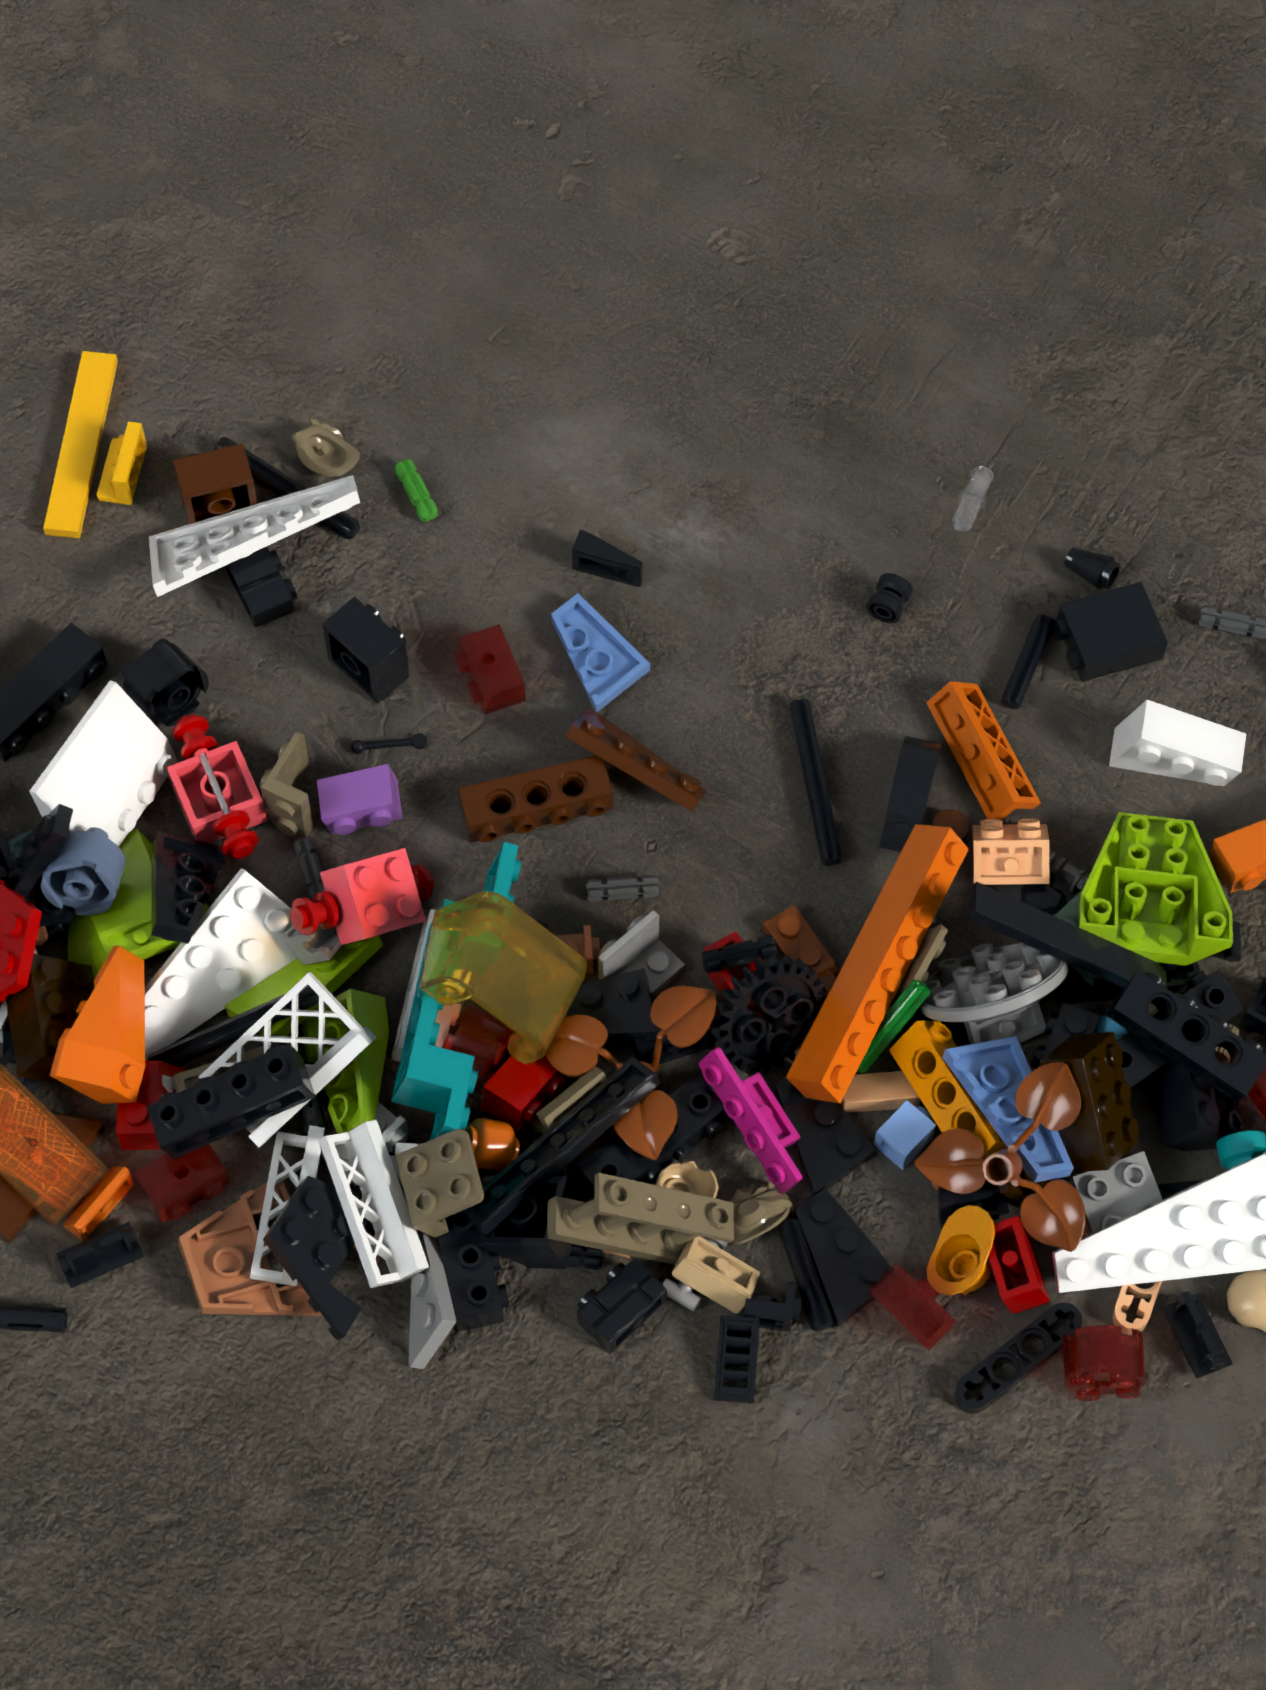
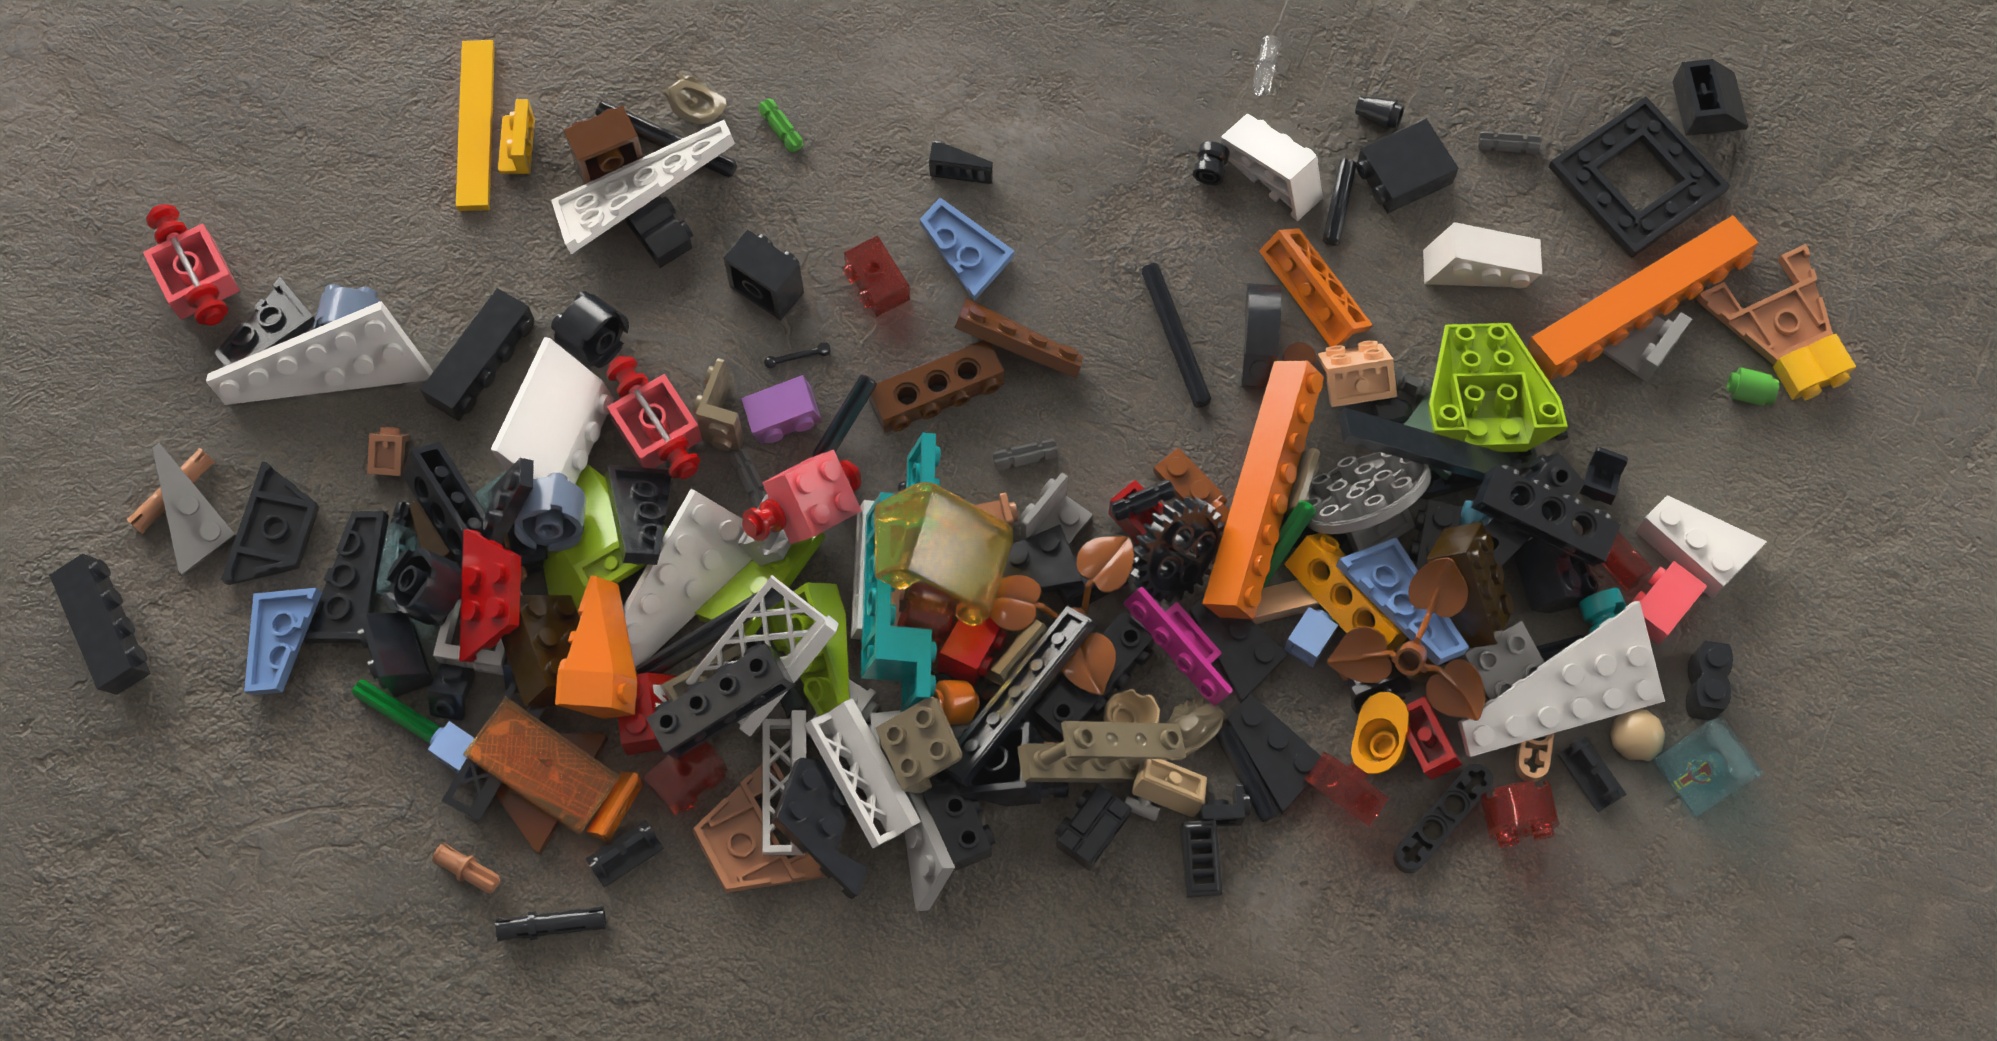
camera: 10 degrees left, 5 degrees up
(430, 814) = (846, 415): none -> black axle
(963, 607) = (1277, 162): none -> white wedge

